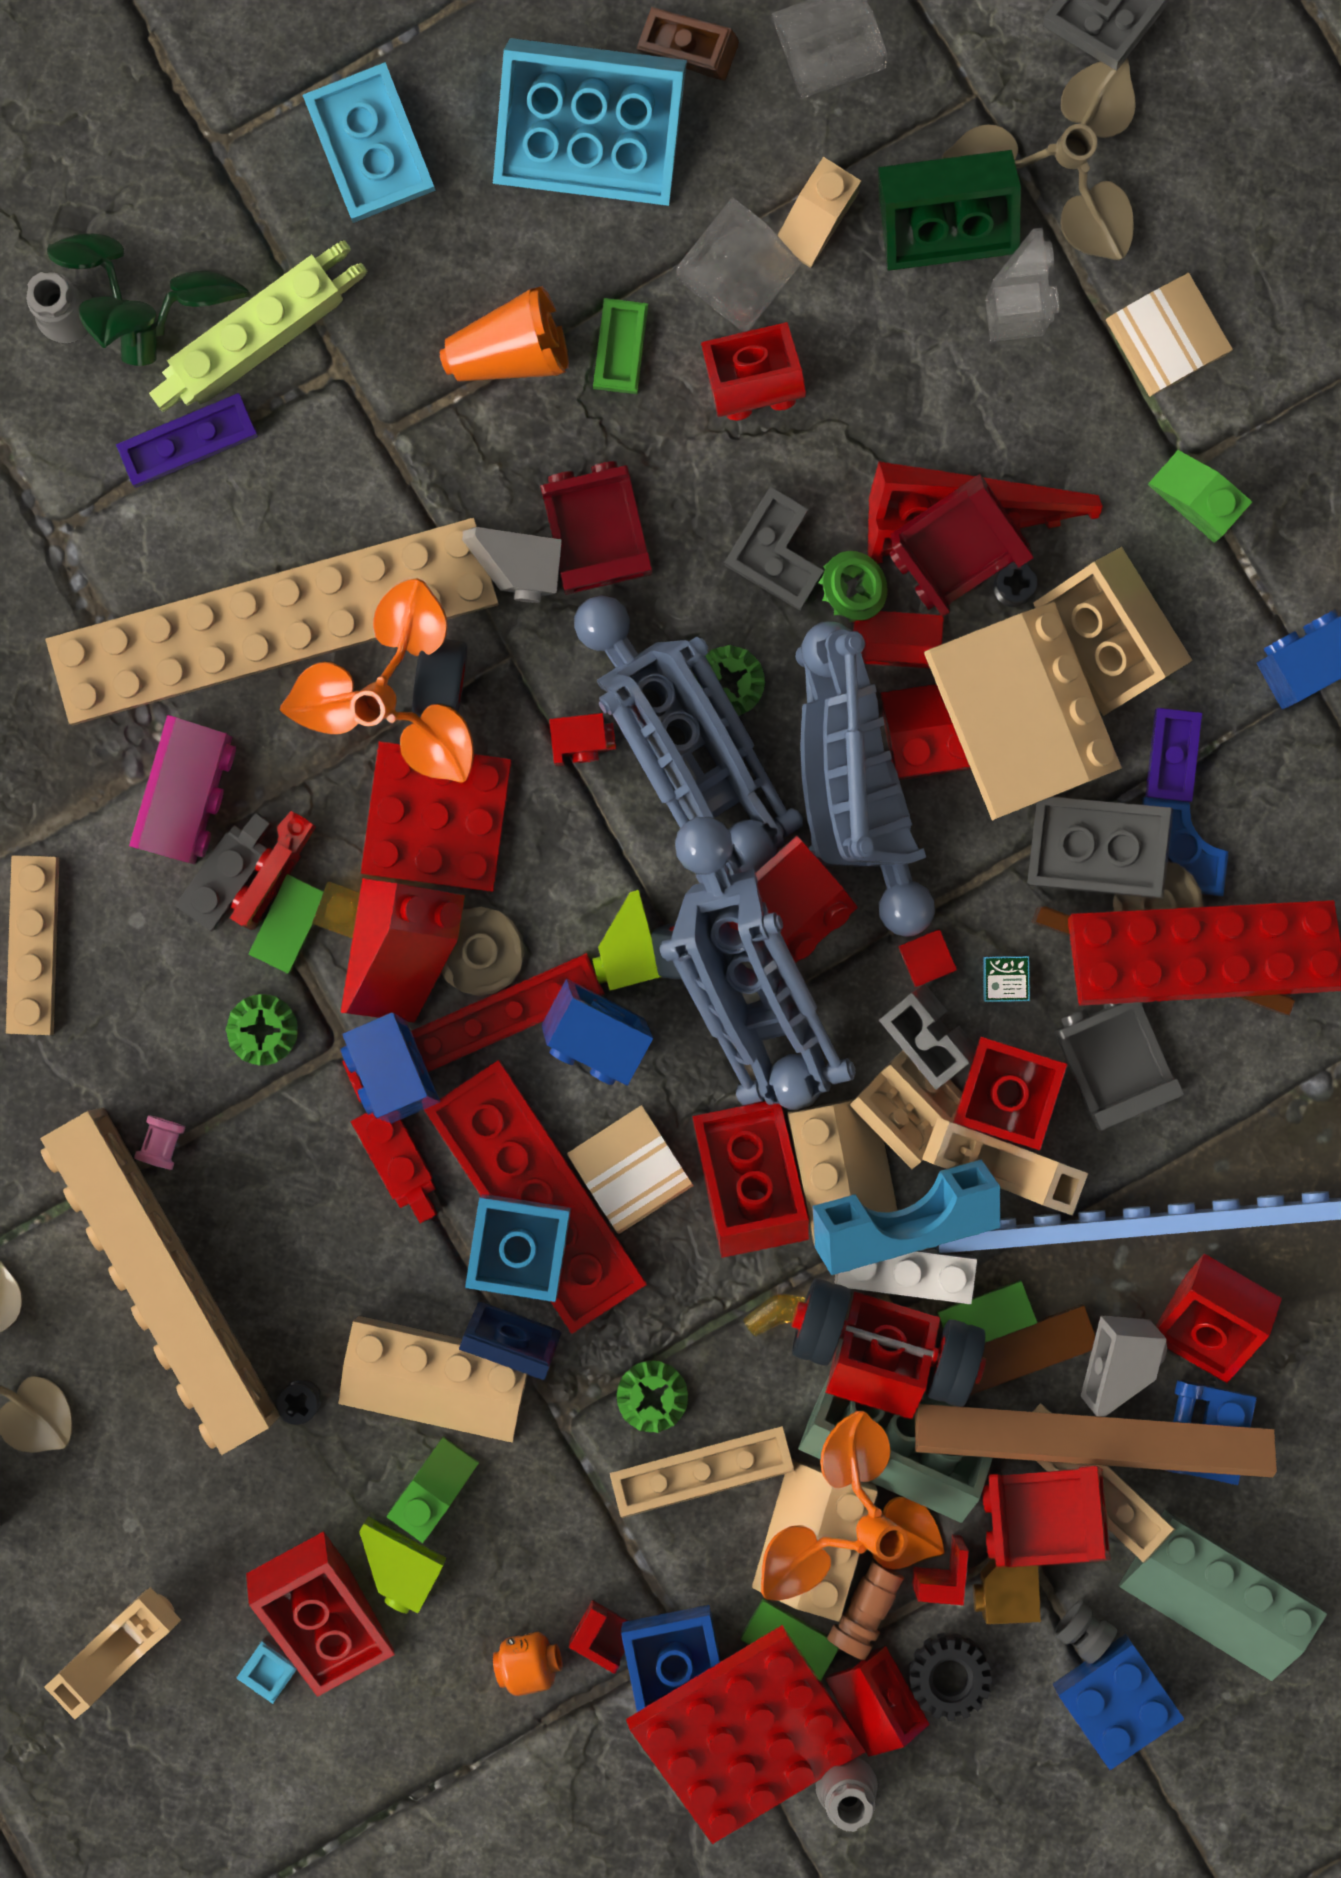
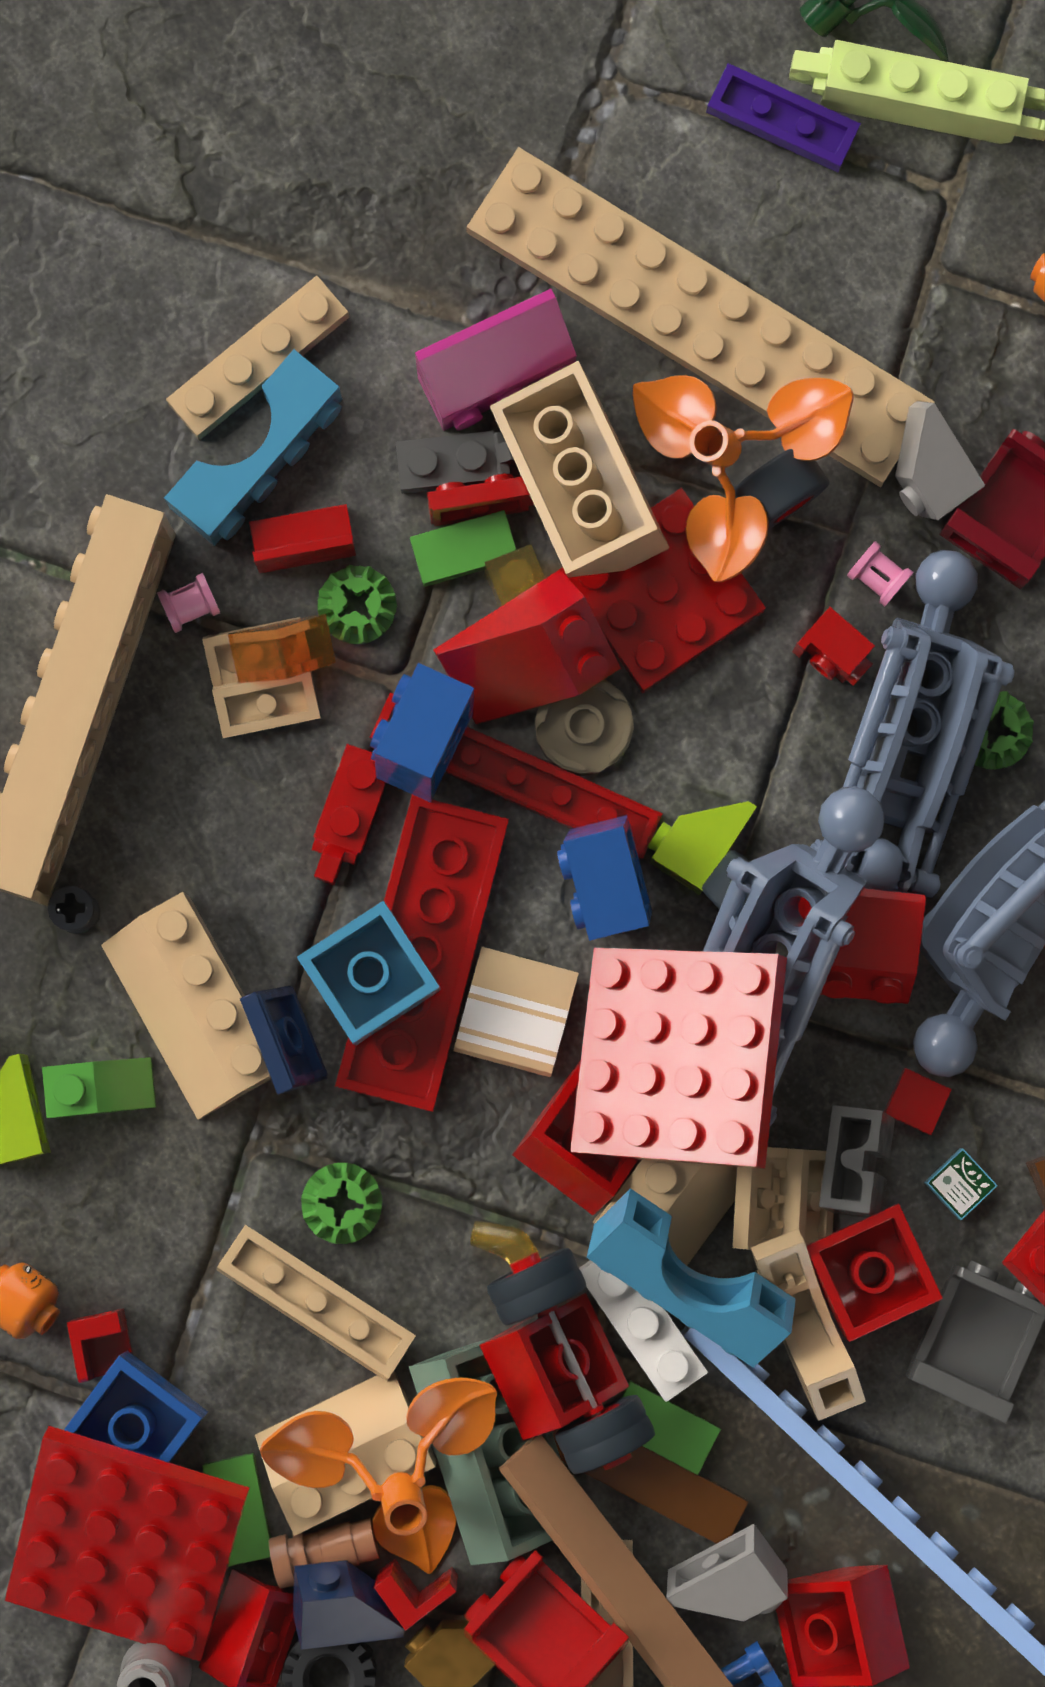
camera: 45 degrees right, 5 degrees down
(105, 1058) = (217, 496): none -> dark azure arch
(184, 1026) = (302, 538): none -> red panel
(248, 1108) = (282, 649): none -> clear orange slope
(254, 1137) = (259, 704): none -> tan slope
(309, 806) = (578, 475): none -> tan slope
(558, 653) = (875, 558): none -> bright pink bush
(755, 1097) = (679, 1056): none -> plate
(910, 1632) = (339, 1606): none -> dark blue slope

